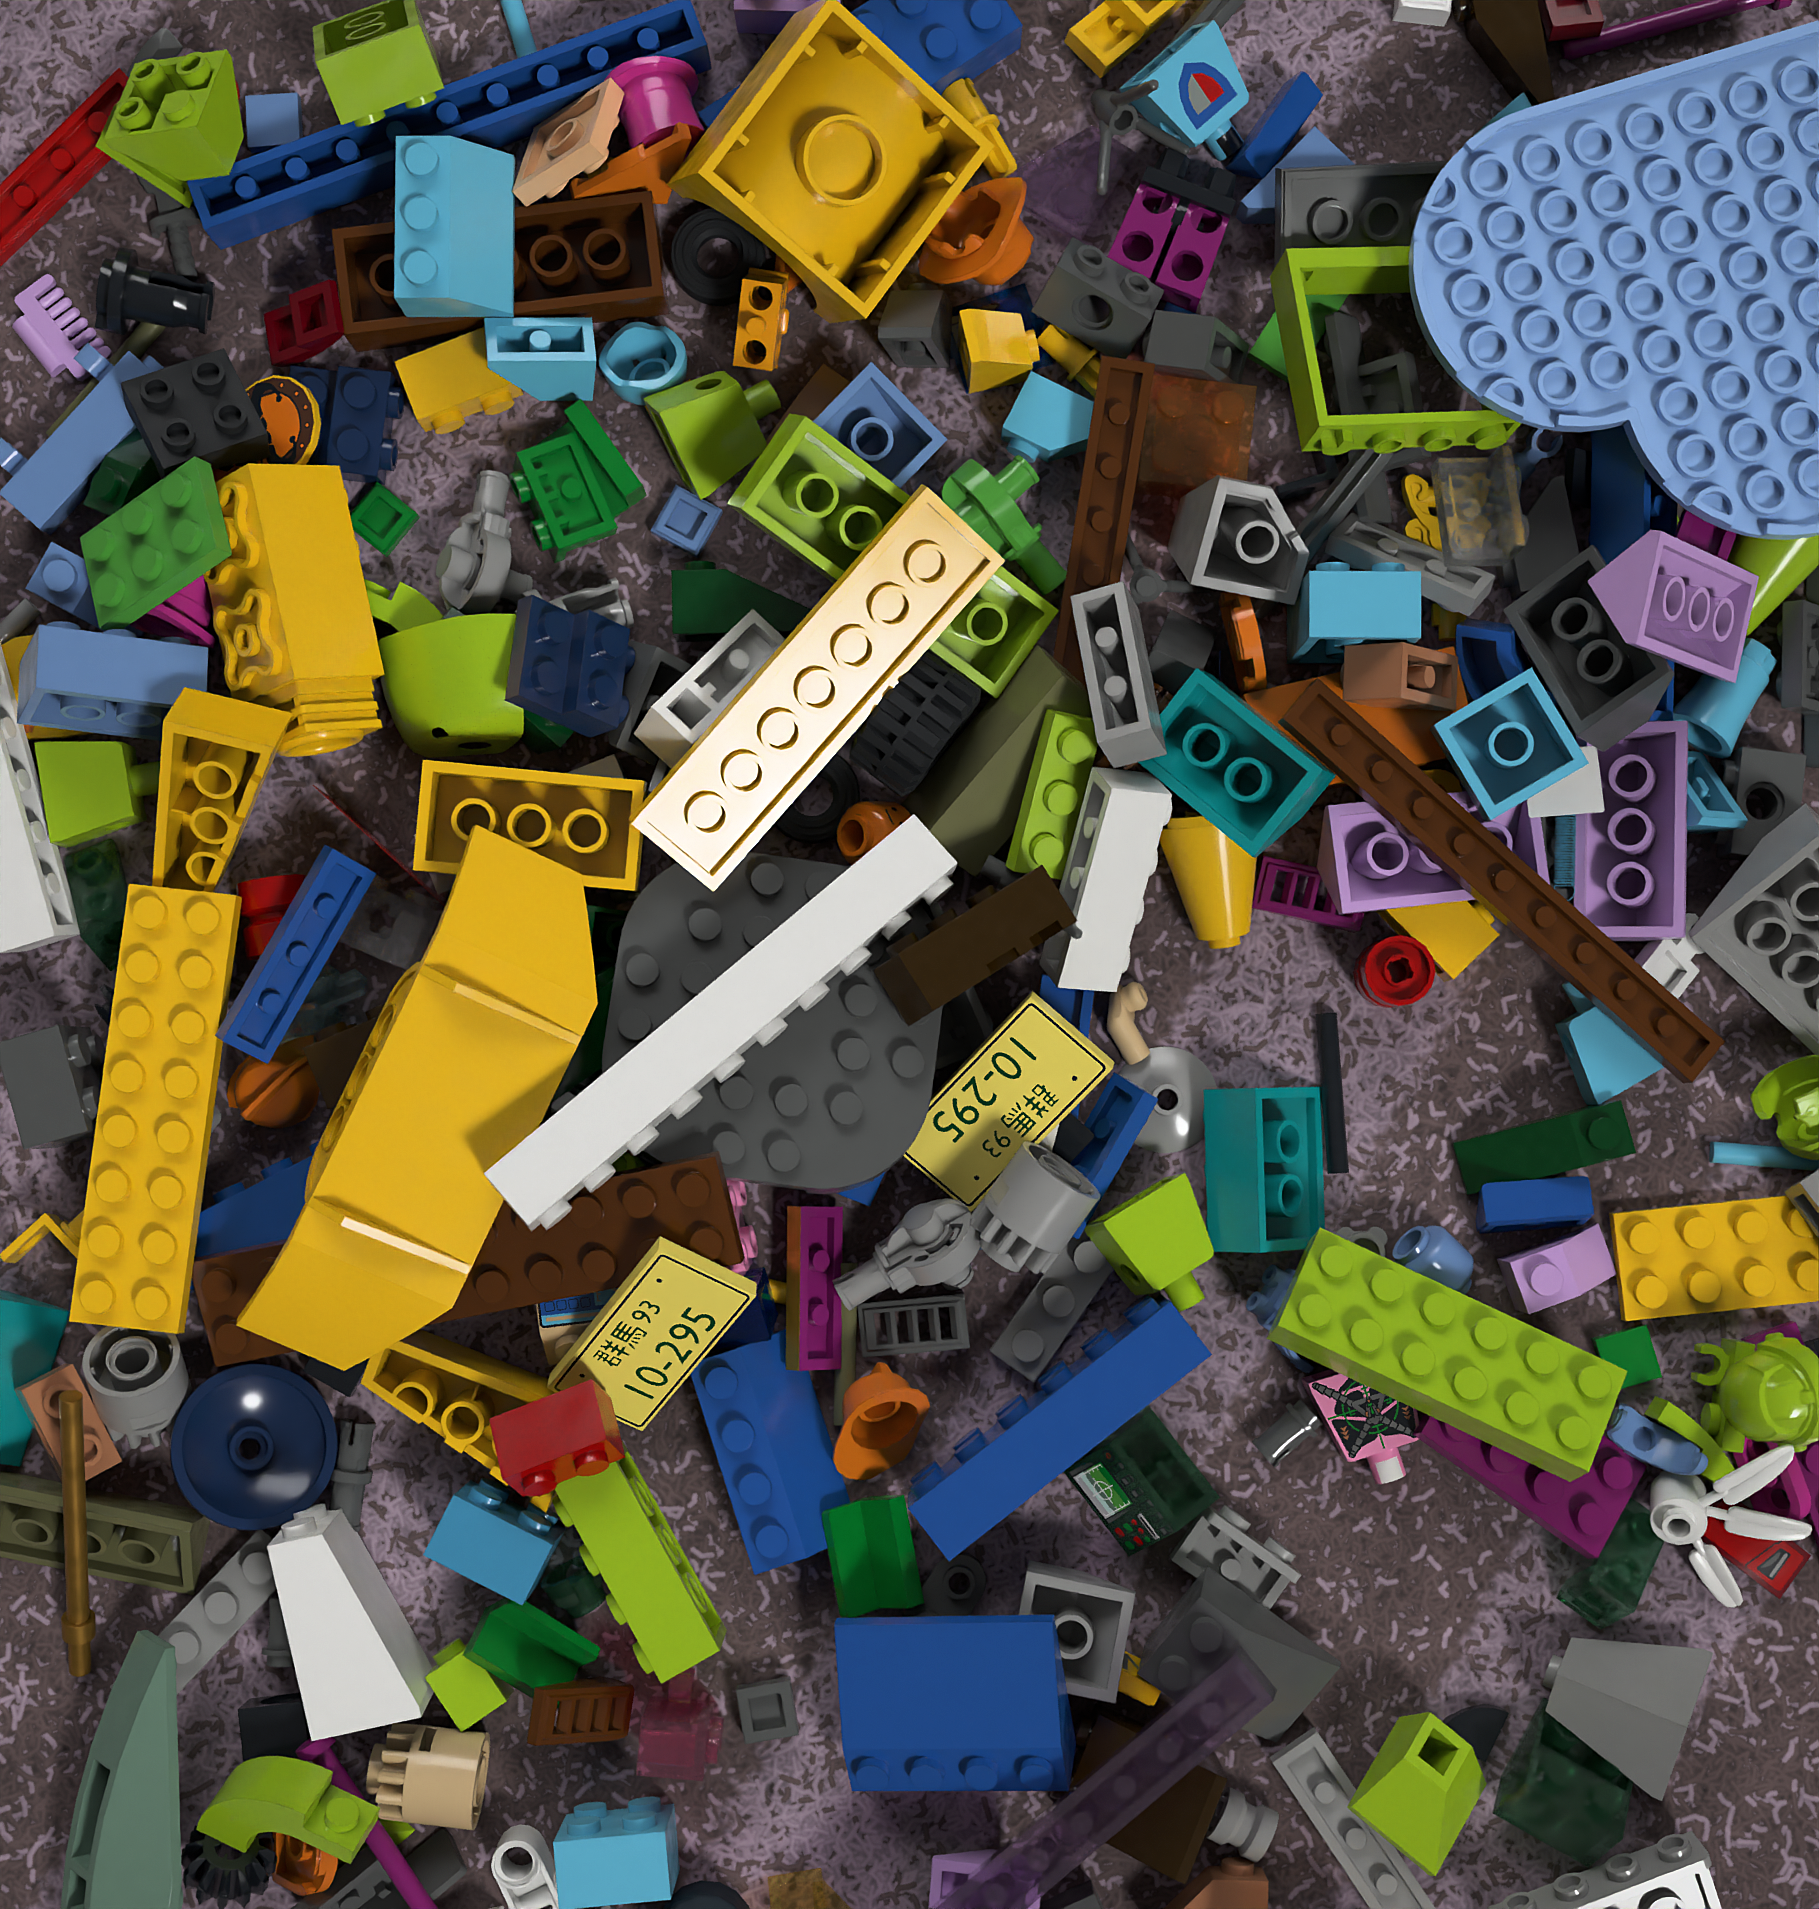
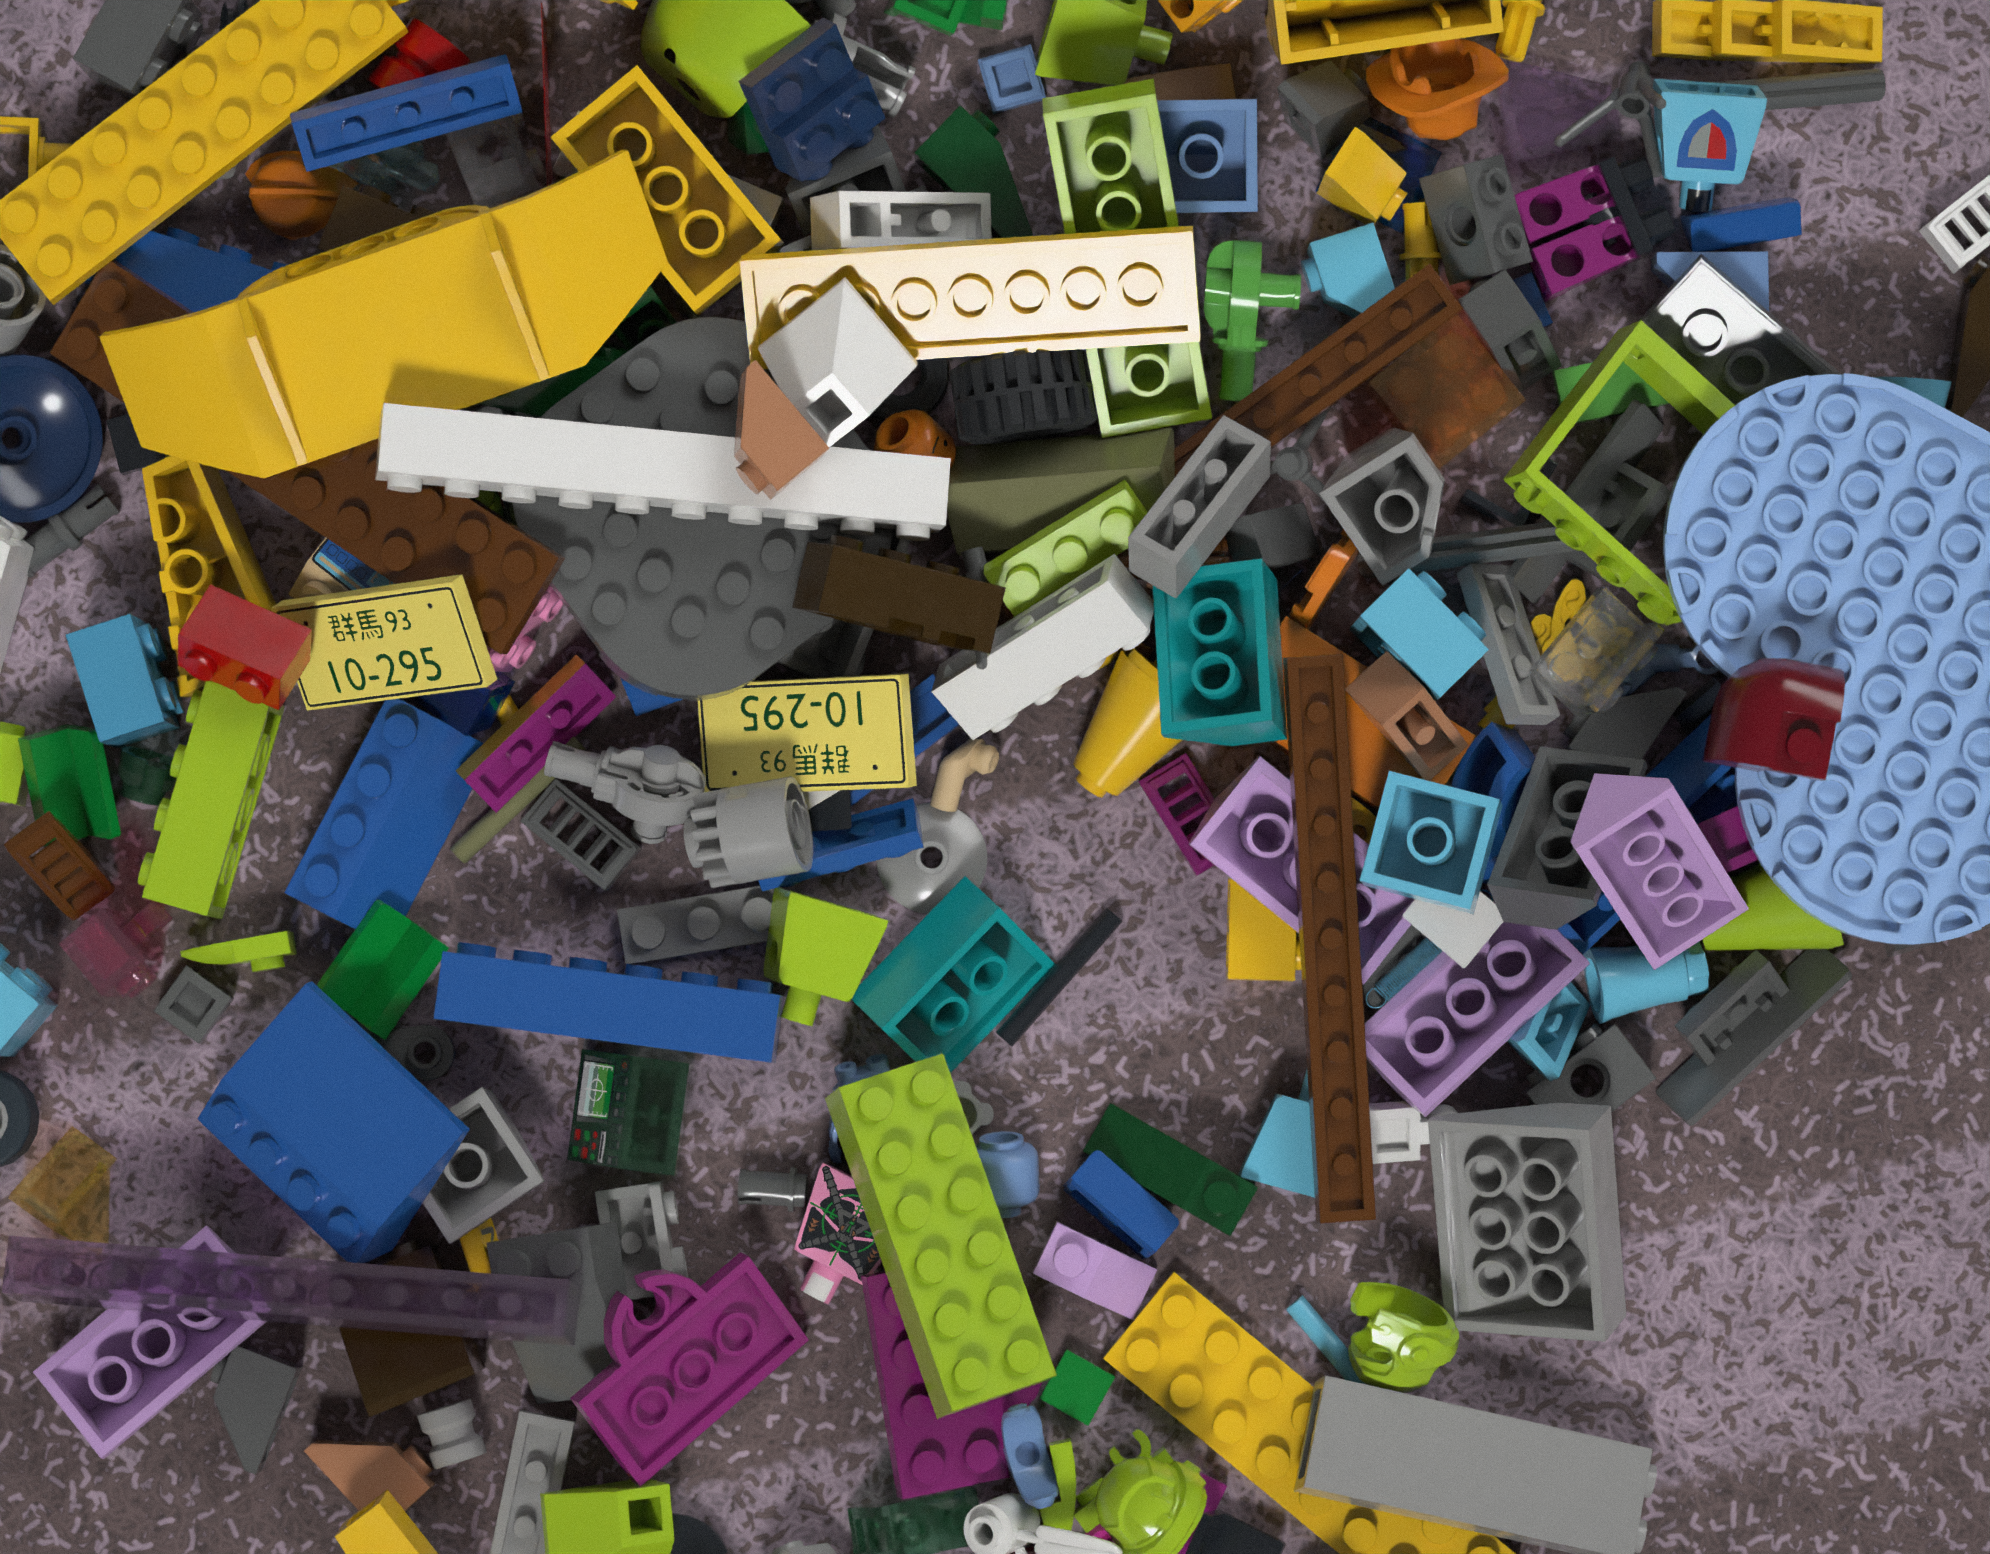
camera: 45 degrees right, 0 degrees up
(770, 827) = (836, 361): none -> white slope
(777, 1628) = (262, 951): none -> lime plate
(778, 921) = (771, 435): none -> nougat slope
(878, 1423) = (481, 879): orange piece -> none
(1353, 1617) = (684, 1361): none -> magenta plate
(1394, 971) = (1191, 930): red wheel -> none
(1668, 417) = (1777, 718): none -> dark red brick

